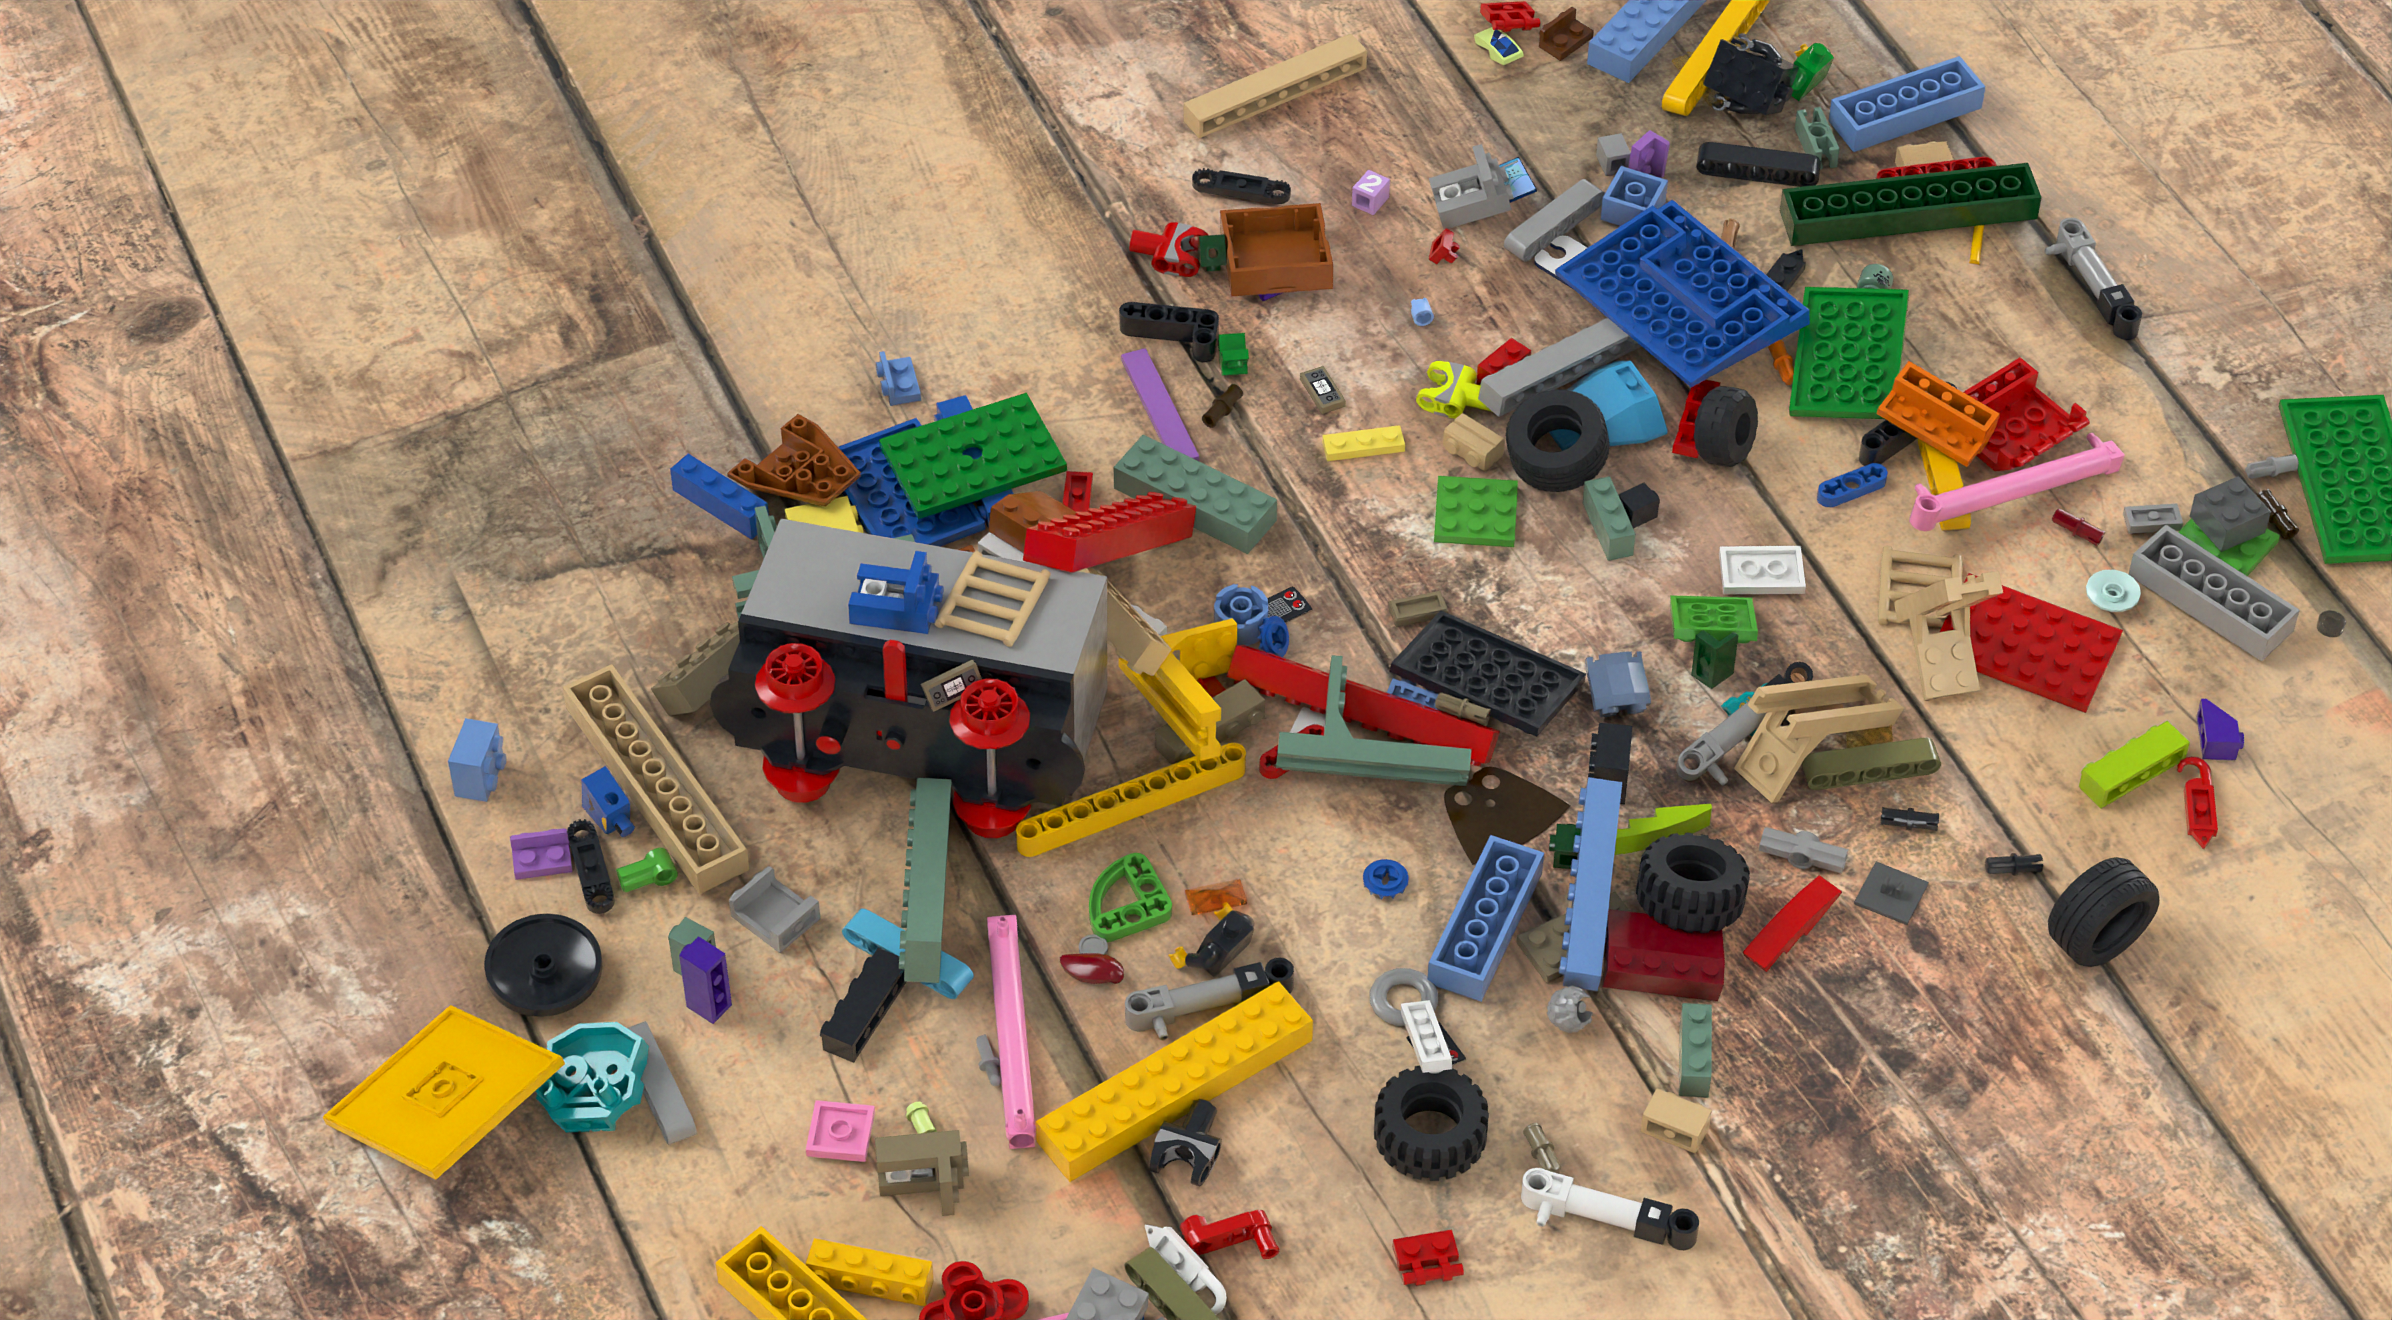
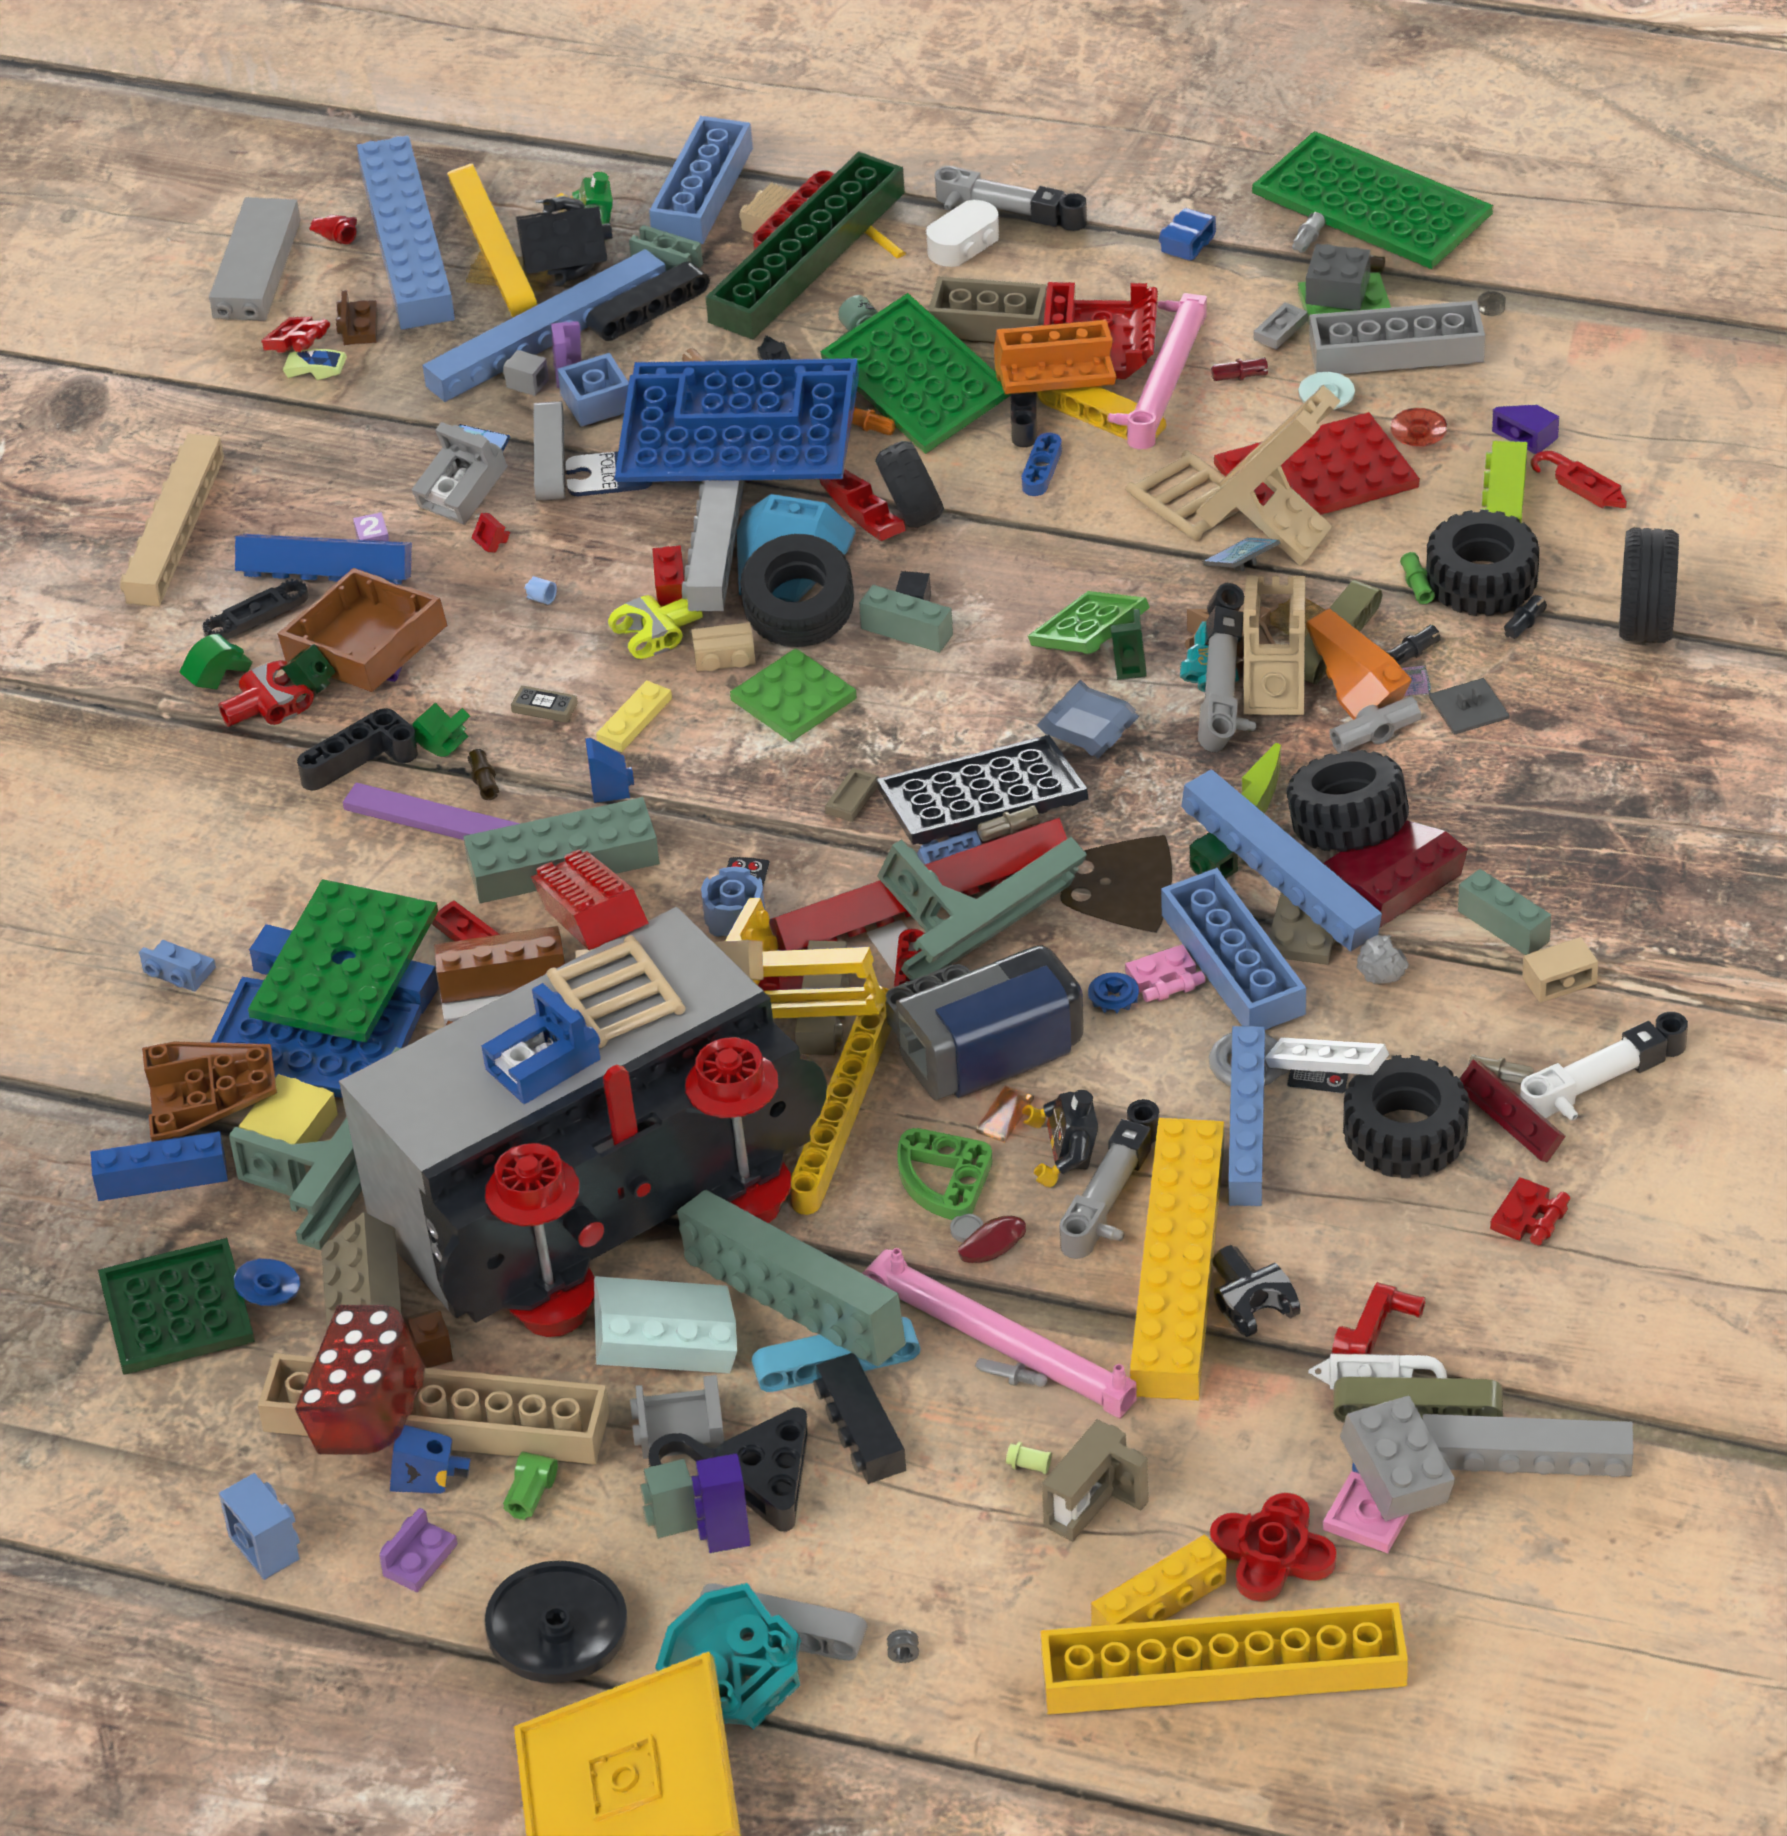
camera: 45 degrees left, 5 degrees down
(590, 866) = (476, 1522): black plate -> none
(609, 720) = (361, 1382): none -> clear red brick
(620, 590) = (175, 1306): none -> dark green plate
(680, 611) = (266, 1282): none -> blue dish
(697, 1163) = (903, 1646): none -> dark grey bush
(710, 737) = (430, 1337): none -> reddish brown slope
(788, 976) = (769, 1461): none -> black piece
(835, 842) = (664, 1325): none -> light aqua slope
(840, 1131) = (978, 1521): bright pink plate -> none
(950, 685) = (674, 1080): tile -> none
(1166, 196) = (210, 660): none -> green brick
(1267, 827) = (987, 1023): none -> piece
(1275, 631) = (780, 895): blue gear -> none
(1285, 464) = (607, 772): none -> blue slope
(1320, 182) = (321, 557): none -> blue brick
(1337, 1031) = (1246, 1116): none -> medium blue brick
(1433, 889) = (1165, 973): none -> bright pink plate
(1507, 1182) = (1511, 1111): none -> dark red plate
(1611, 754) = (1162, 769): black brick -> none
(1683, 130) = (532, 330): none -> medium blue brick
(1762, 570) = (1066, 567): white plate -> none
(1792, 922) = (1441, 777): red slope -> none
(1839, 798) = (1356, 665): none -> orange wedge
(1877, 843) = (1420, 681): none -> clear light blue tile
(1887, 656) = (1241, 552): none -> piece
(1958, 342) = (979, 307): none -> dark tan brick
(1982, 774) = (1417, 578): none -> bright green pin
(2030, 278) = (962, 233): none -> white brick
(2037, 773) = (1482, 587): none -> black tyre
(2139, 669) = (1418, 427): none -> clear red dish
(2183, 400) = (1187, 234): none -> blue brick

